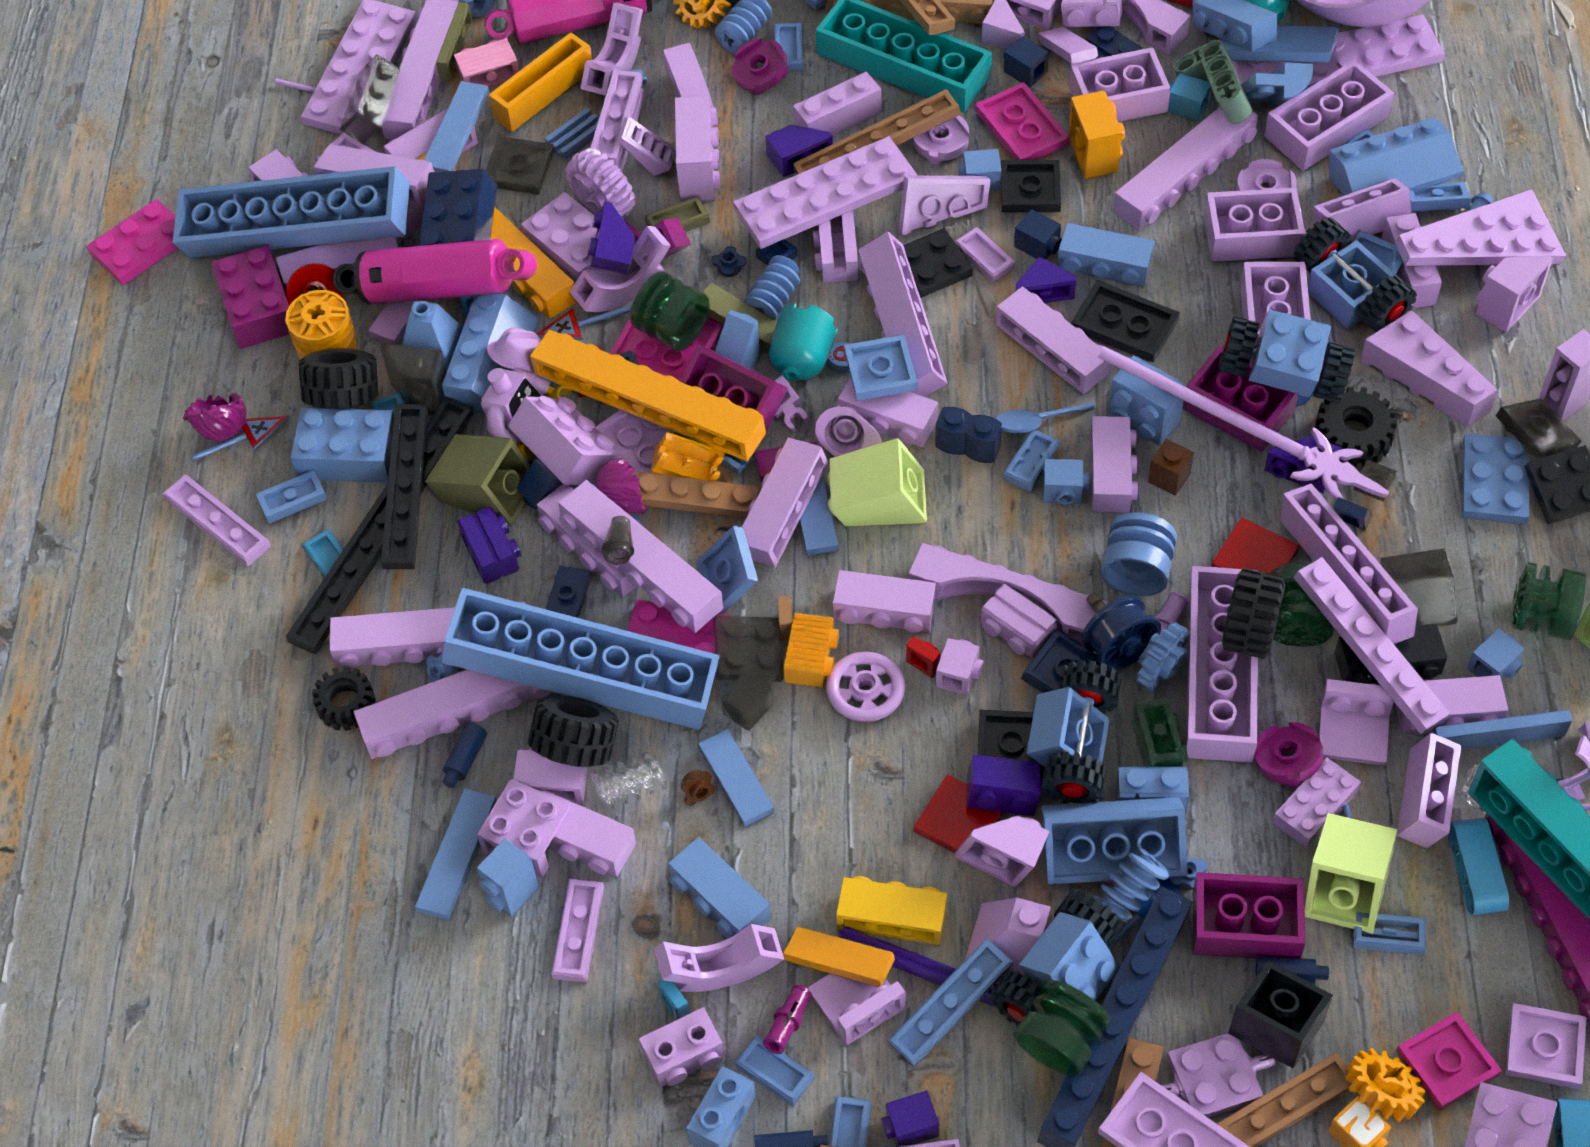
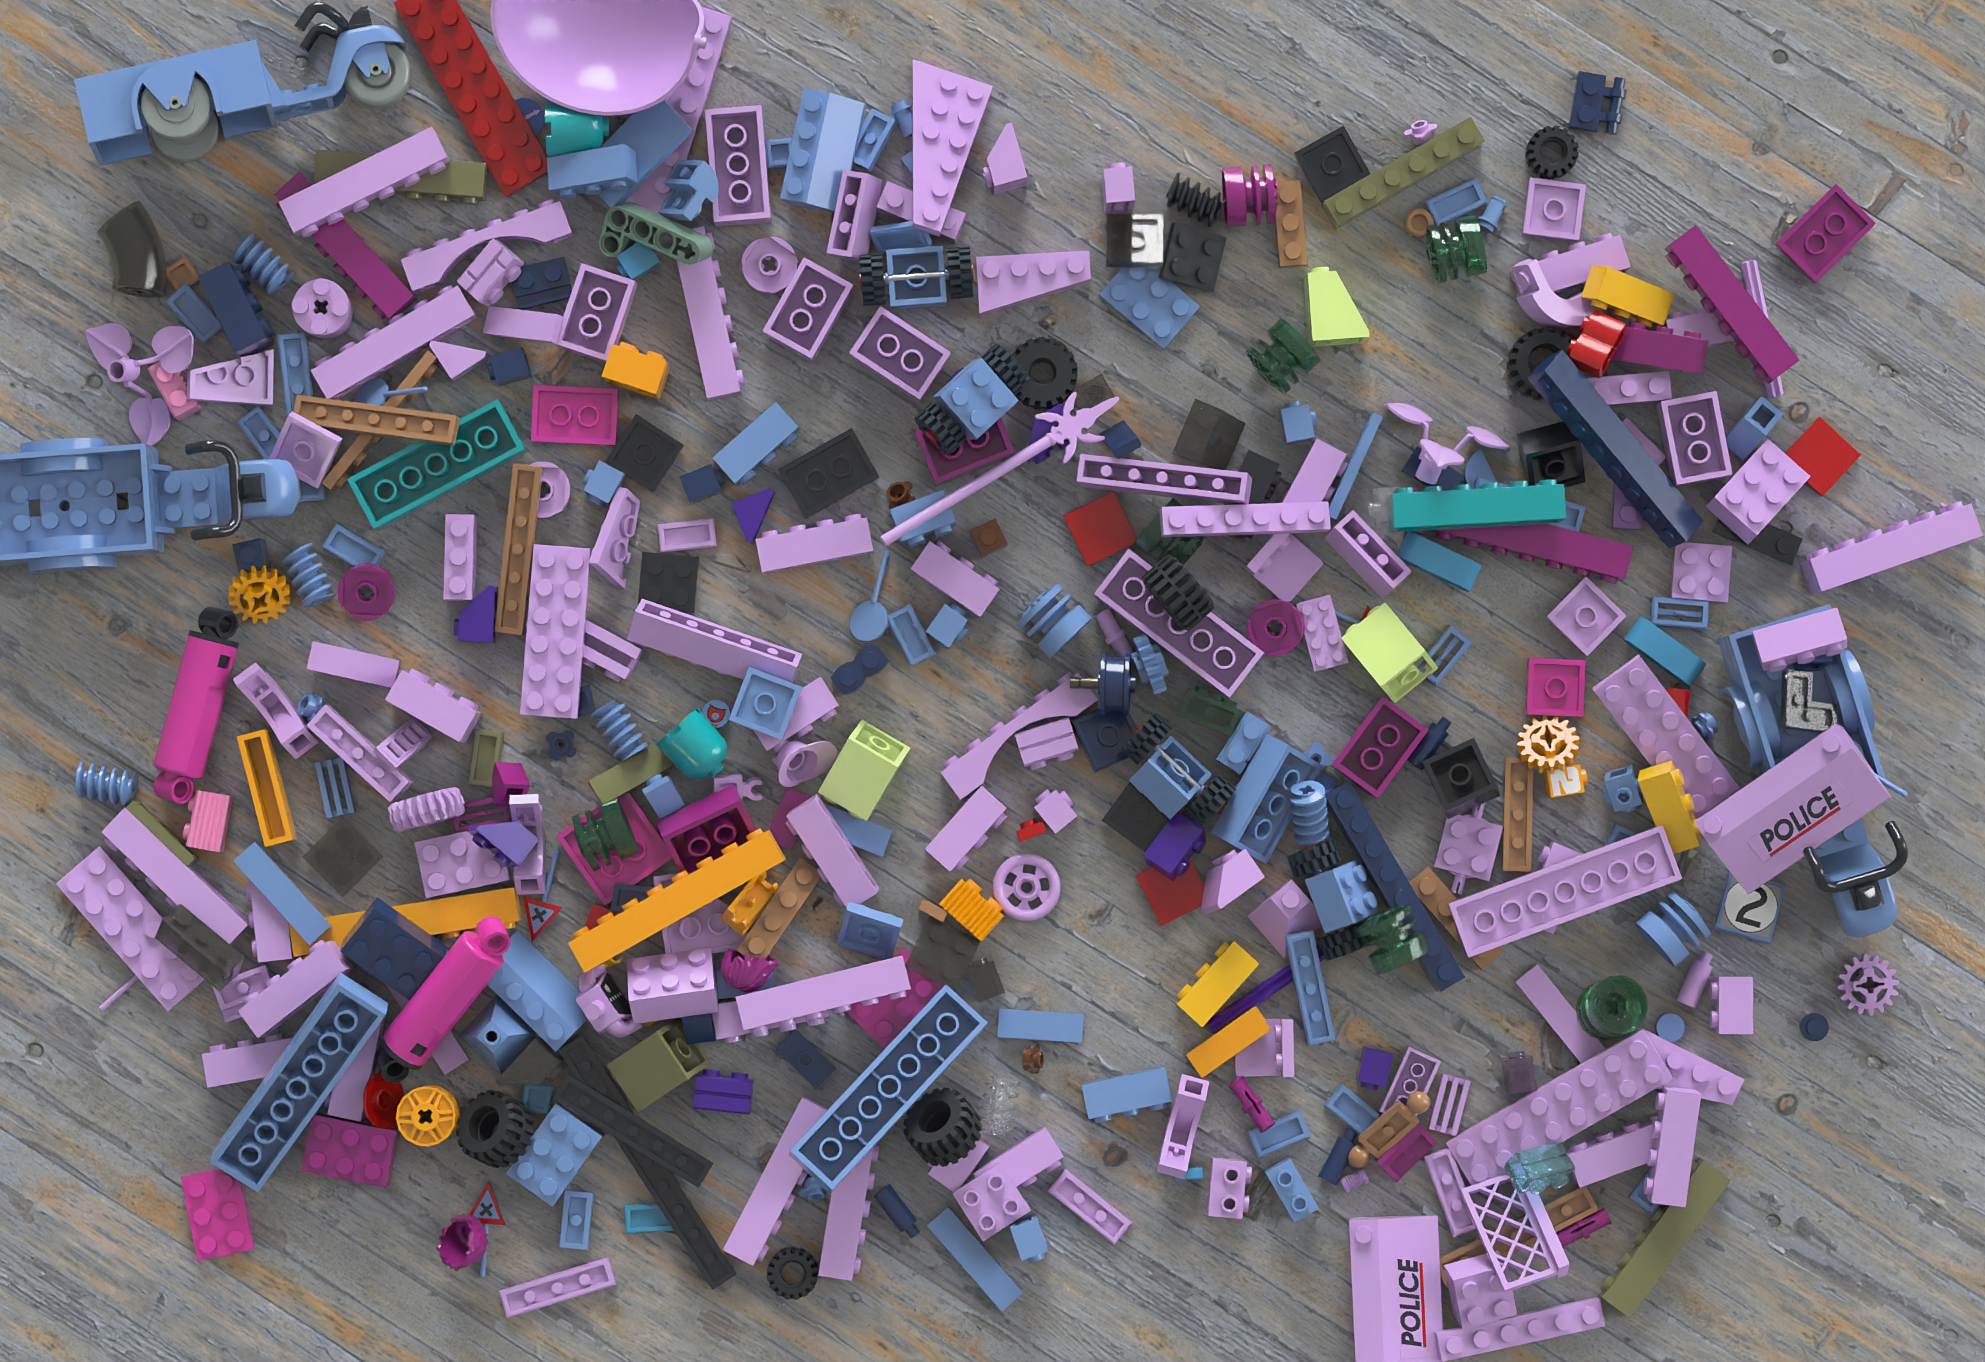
camera: 65 degrees left, 30 degrees up
(514, 349) = (558, 973): lavender piece -> none
(618, 542) = (814, 1008): clear smoke cone -> none

